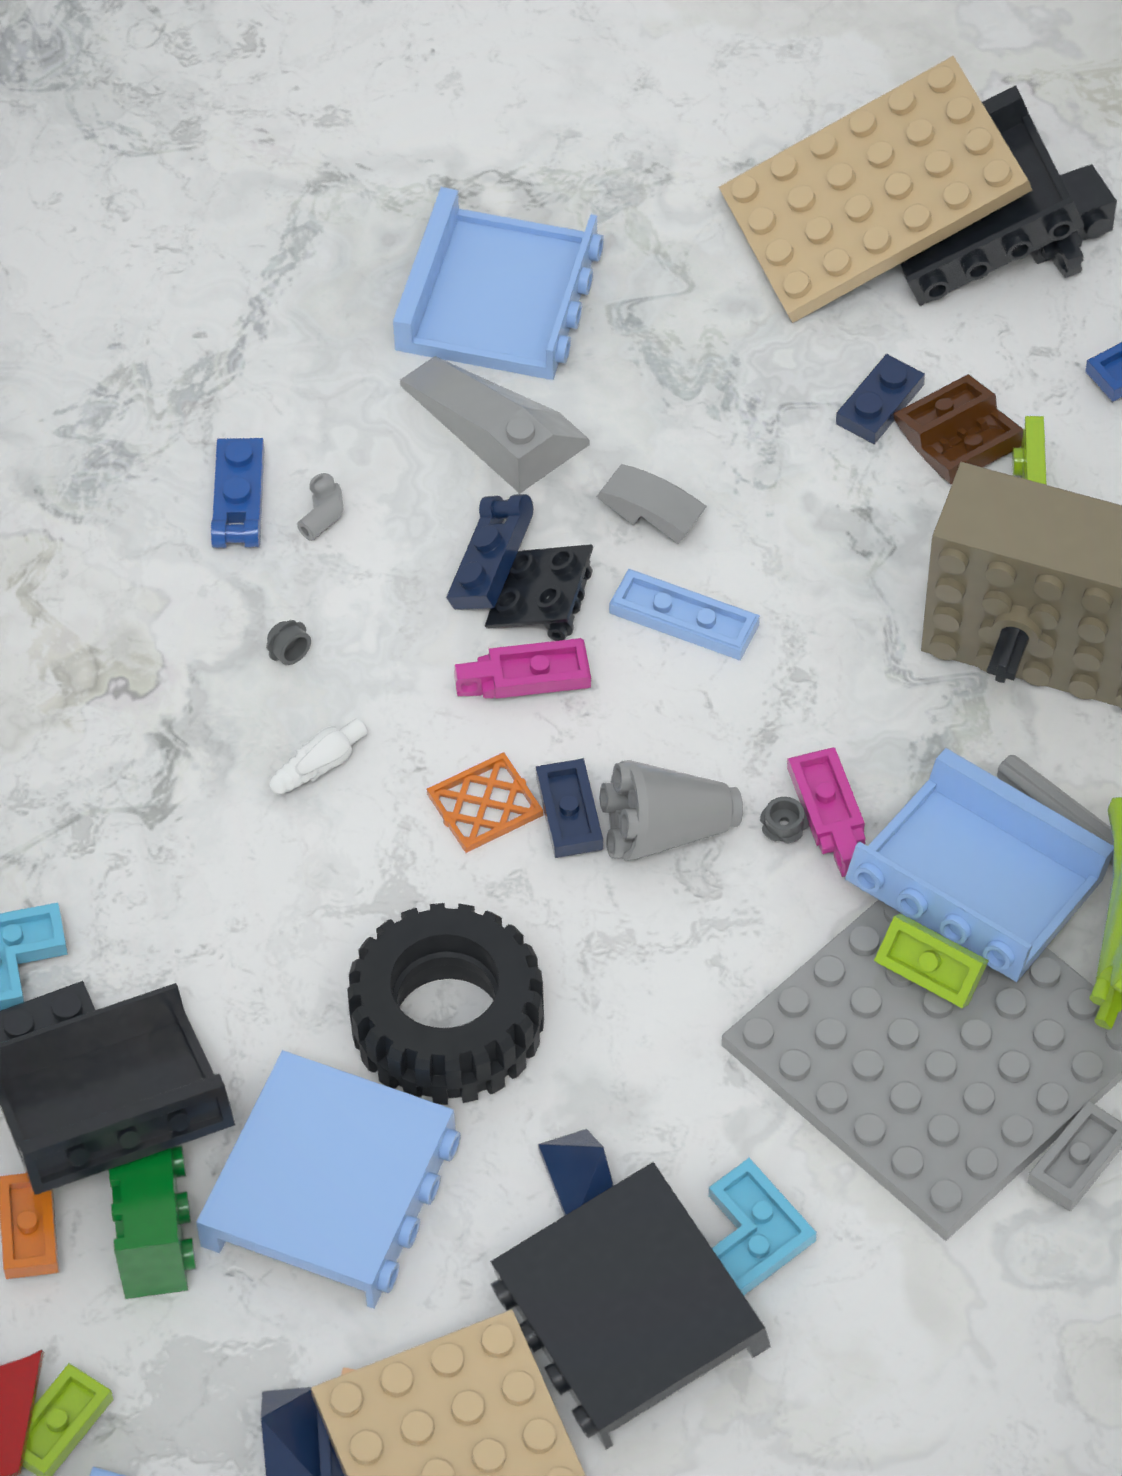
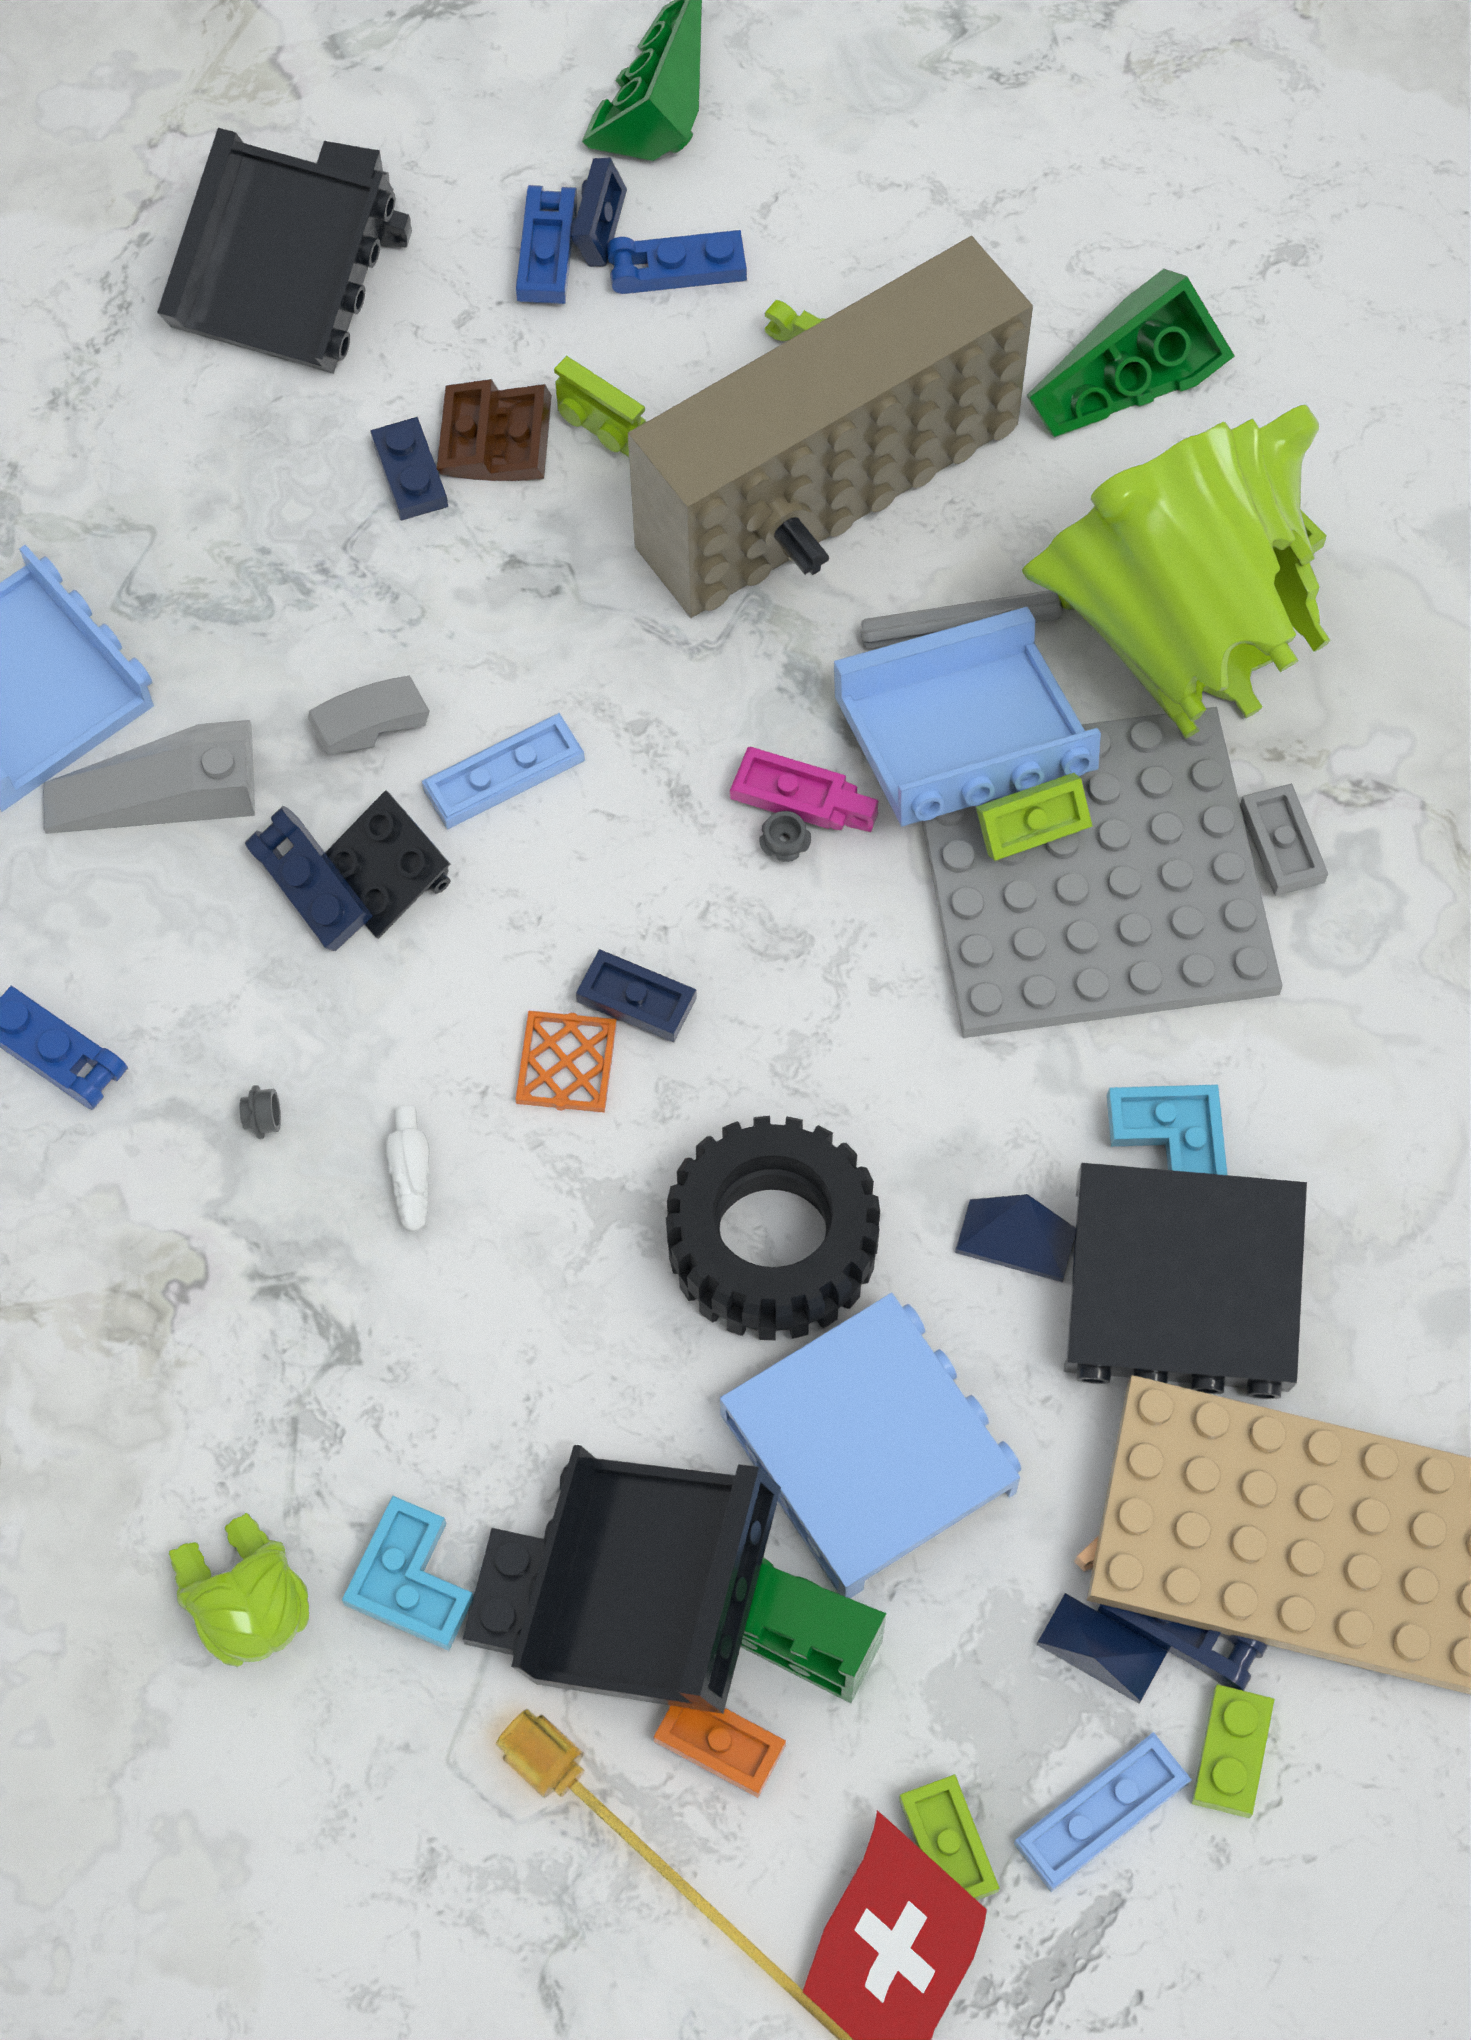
camera: 55 degrees left, 10 degrees up
(326, 504) = (133, 981): light grey arm -> none
(525, 670) = (462, 934): dark pink hinge -> none
(664, 809) = (706, 924): light grey cone -> none
(874, 188) = (203, 314): tan plate -> none

